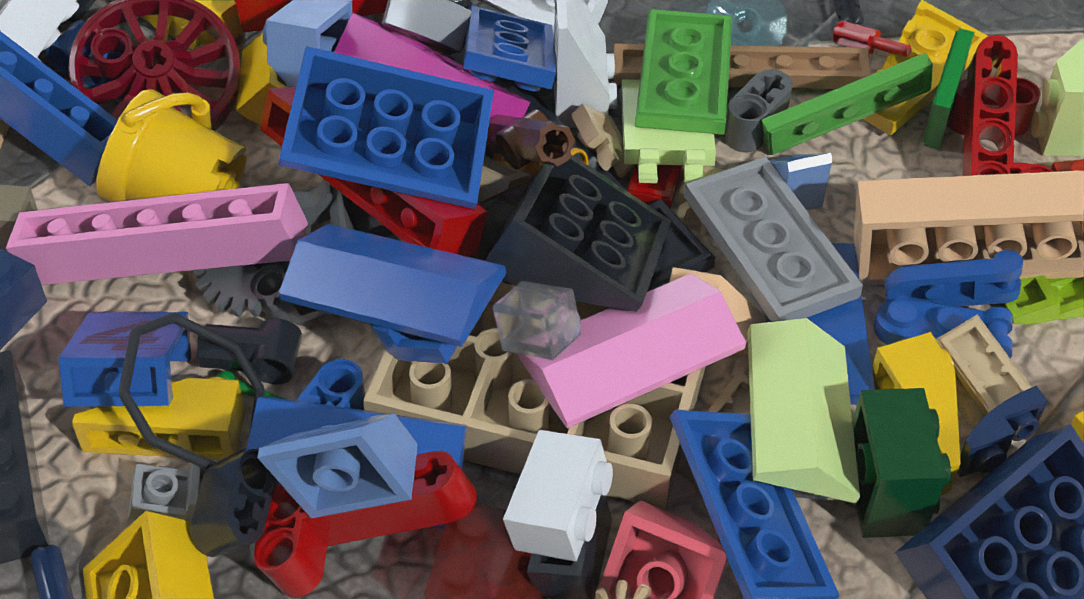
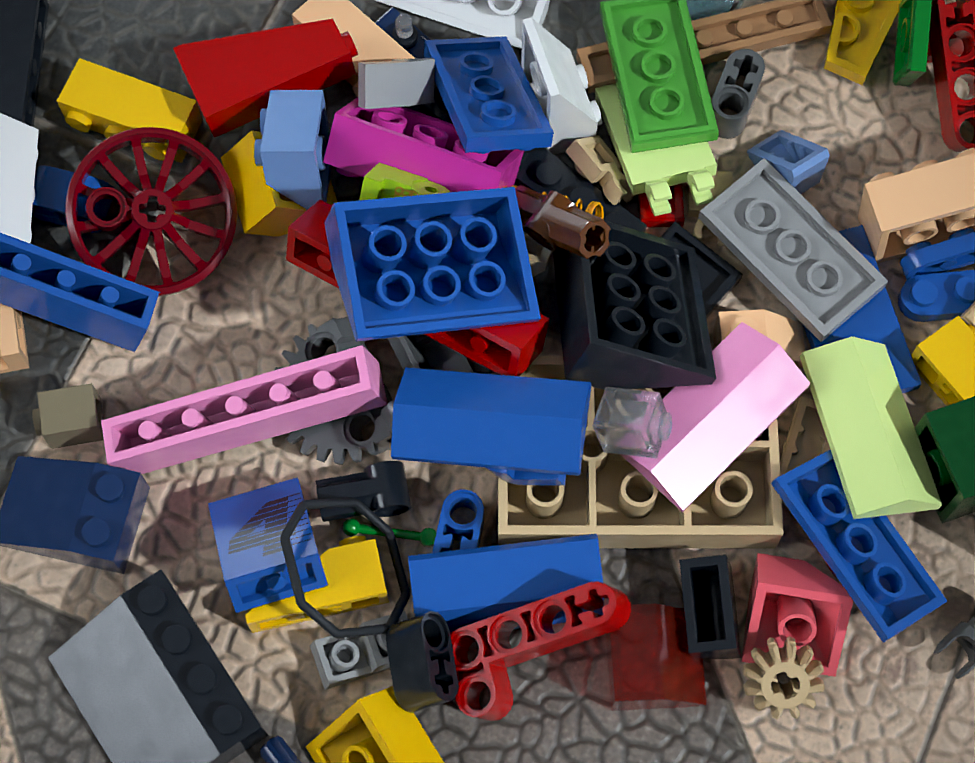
camera: 15 degrees left, 20 degrees up
(165, 152) = (221, 323): yellow piece -> none
(345, 465) = (521, 616): medium blue slope -> none
(558, 495) = (699, 582): white brick -> none
(847, 104) = (822, 73): bright green tile -> none

